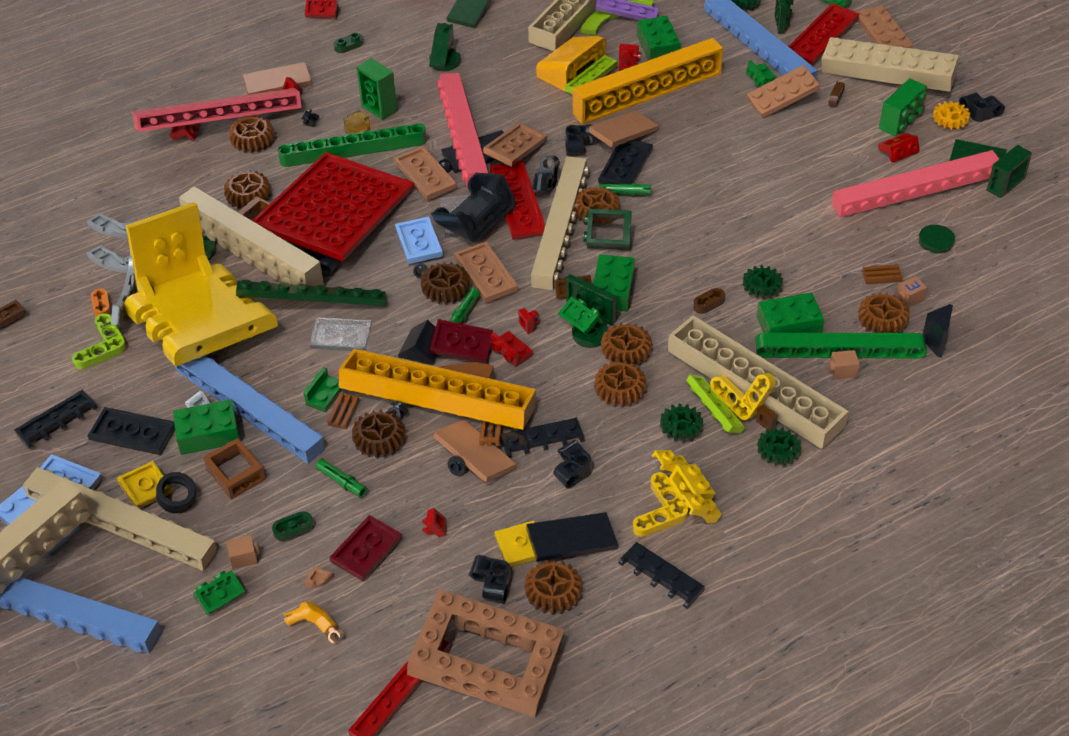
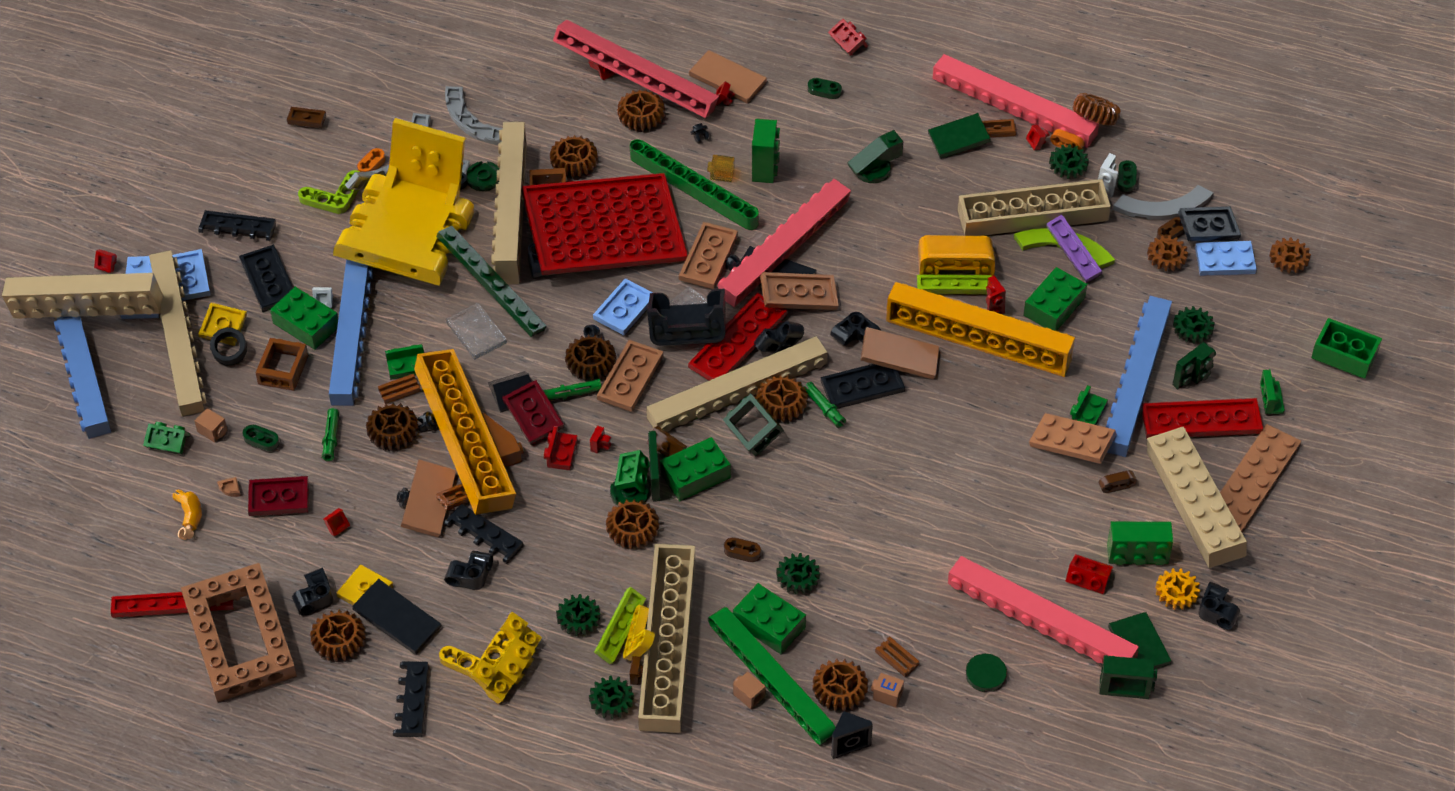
camera: 50 degrees right, 5 degrees up
(620, 383) = (588, 540): dark orange gear -> none

